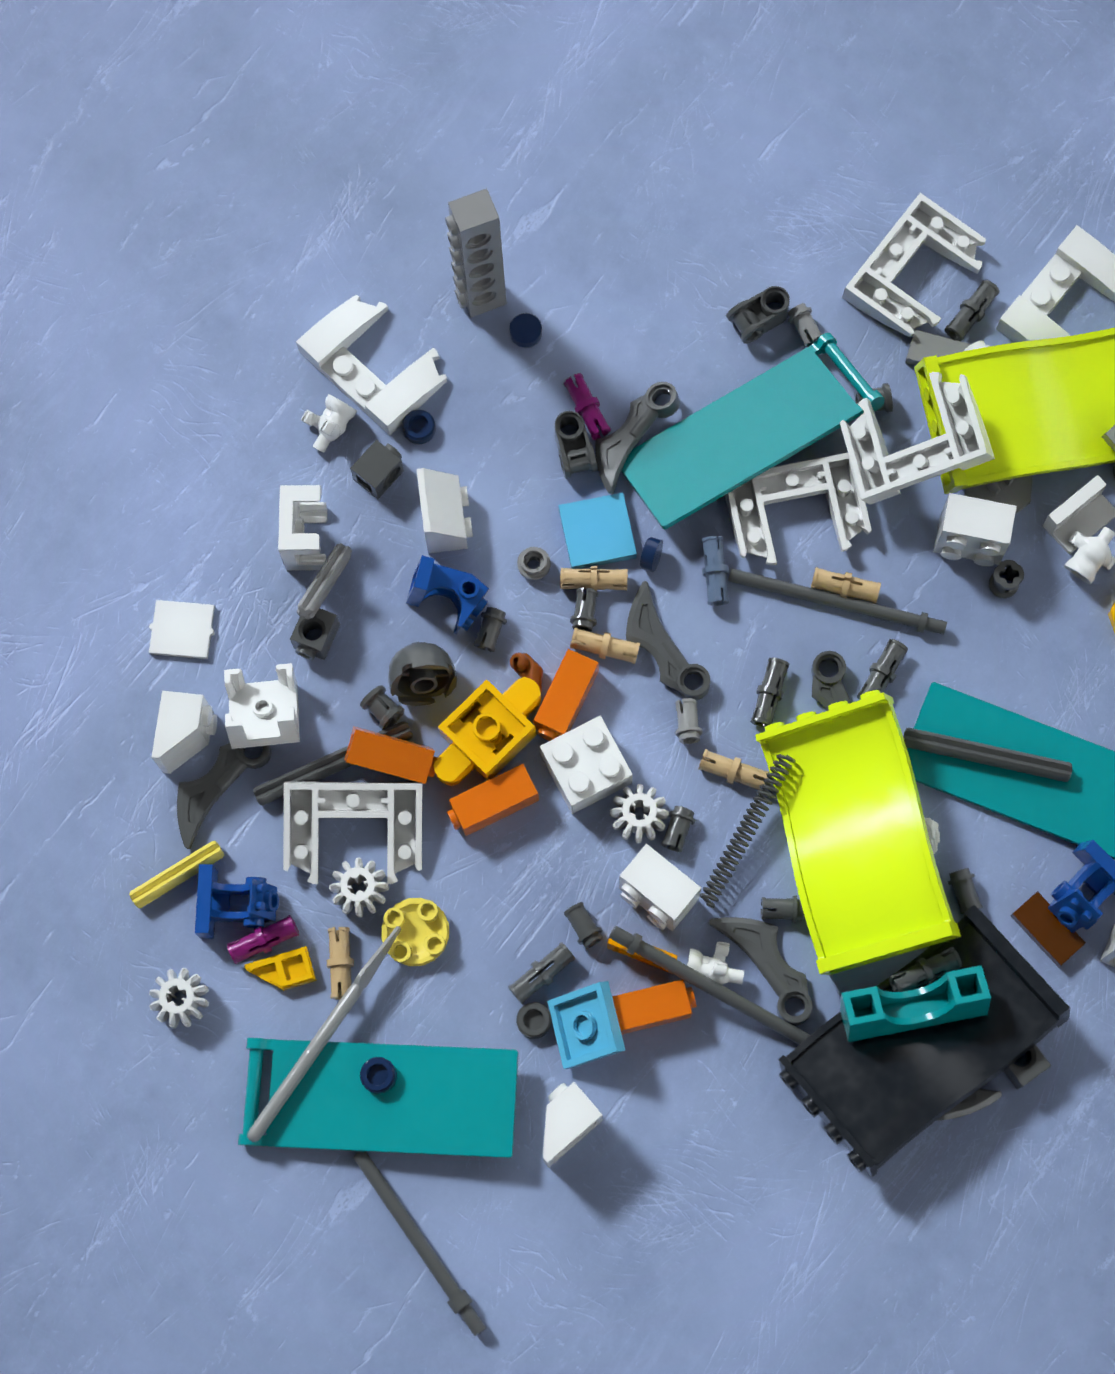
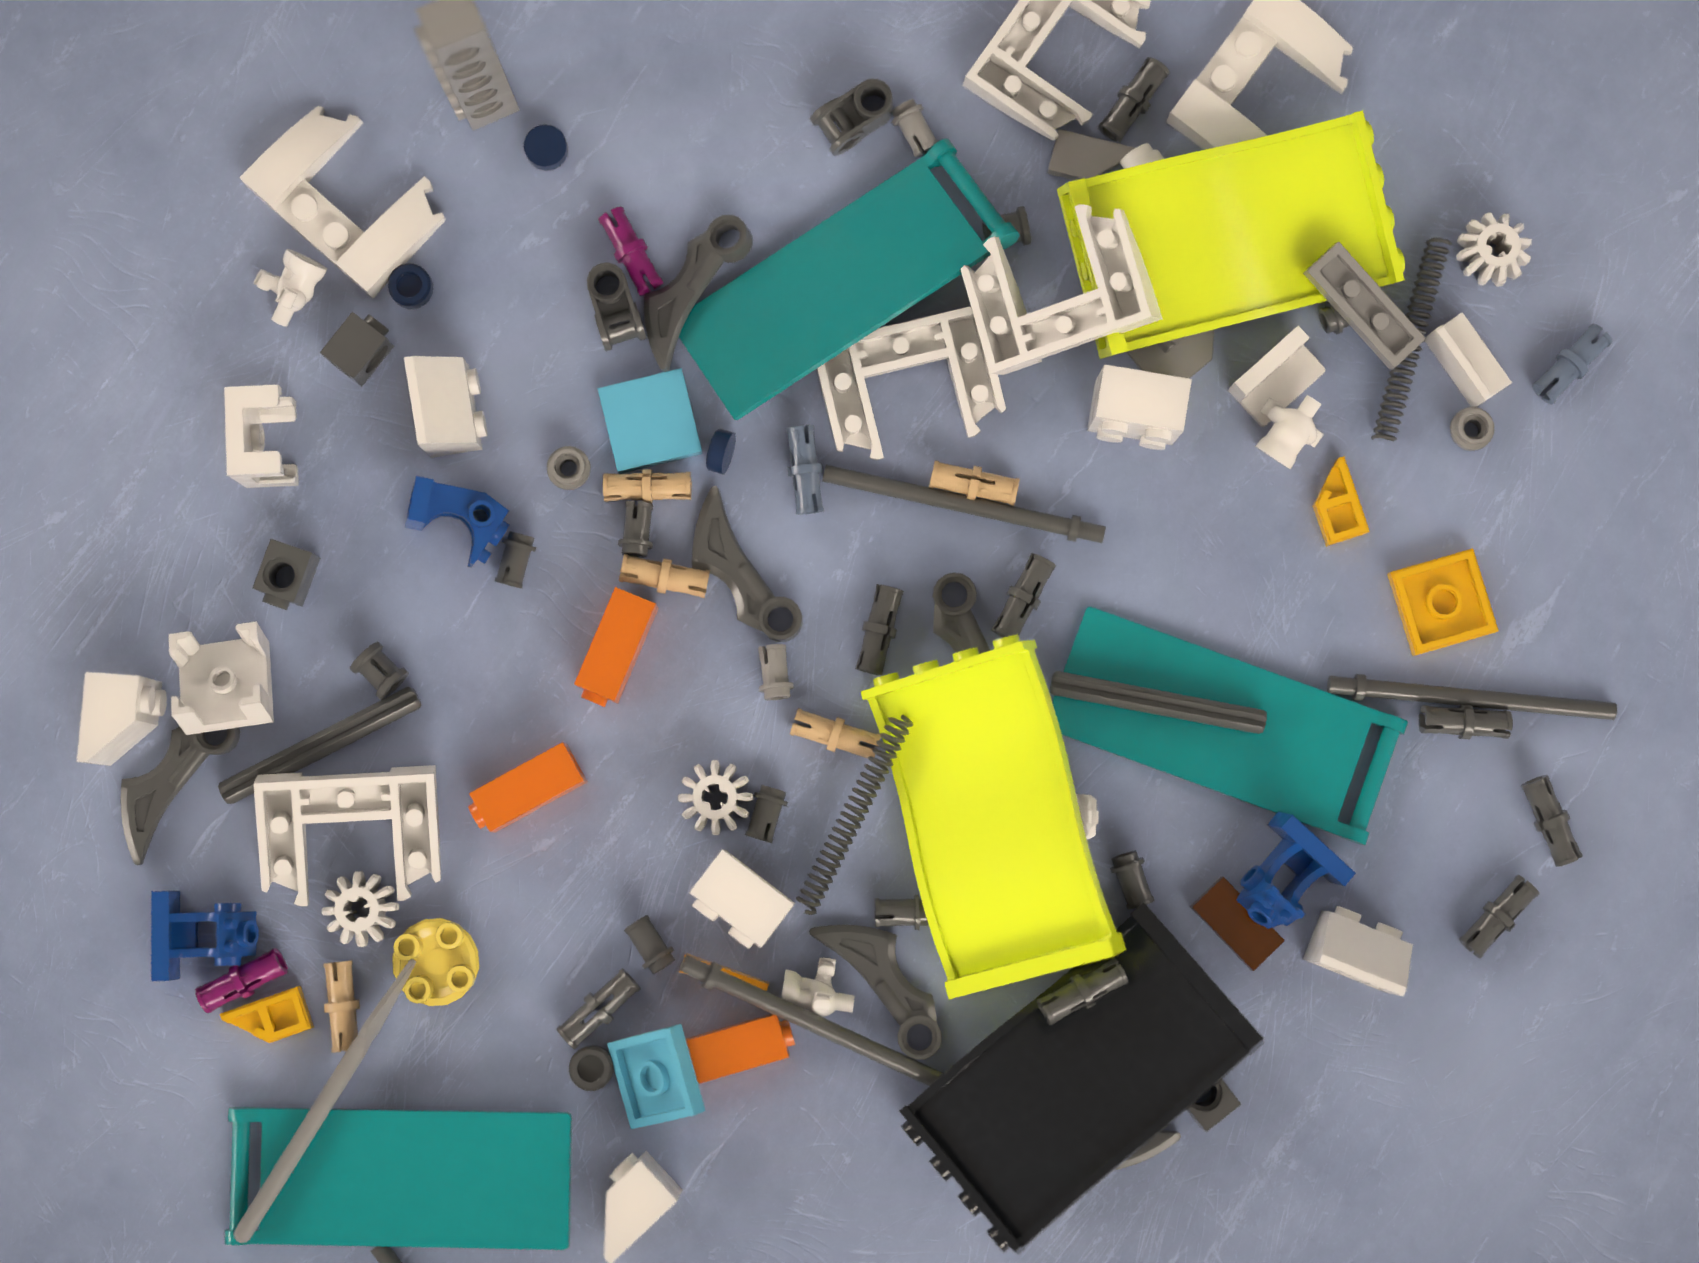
camera: 10 degrees left, 10 degrees up
(170, 1009) = (129, 1047): white gear -> none
(175, 874) = (125, 900): light yellow axle -> none
(181, 629) = (113, 573): white piece -> none
(324, 581) = (293, 507): light grey axle -> none
(378, 1075) = (395, 1152): dark blue tile -> none
(390, 755) = (392, 737): orange brick -> none
(421, 673) = (425, 624): dark grey cylinder -> none
(487, 731) = (515, 699): yellow brick -> none
(527, 667) = (569, 614): dark orange arm -> none
(586, 764) = (644, 737): white brick -> none
(949, 999) = (1039, 1049): teal arch -> none
(1013, 573) = (1173, 478): dark grey bush -> none

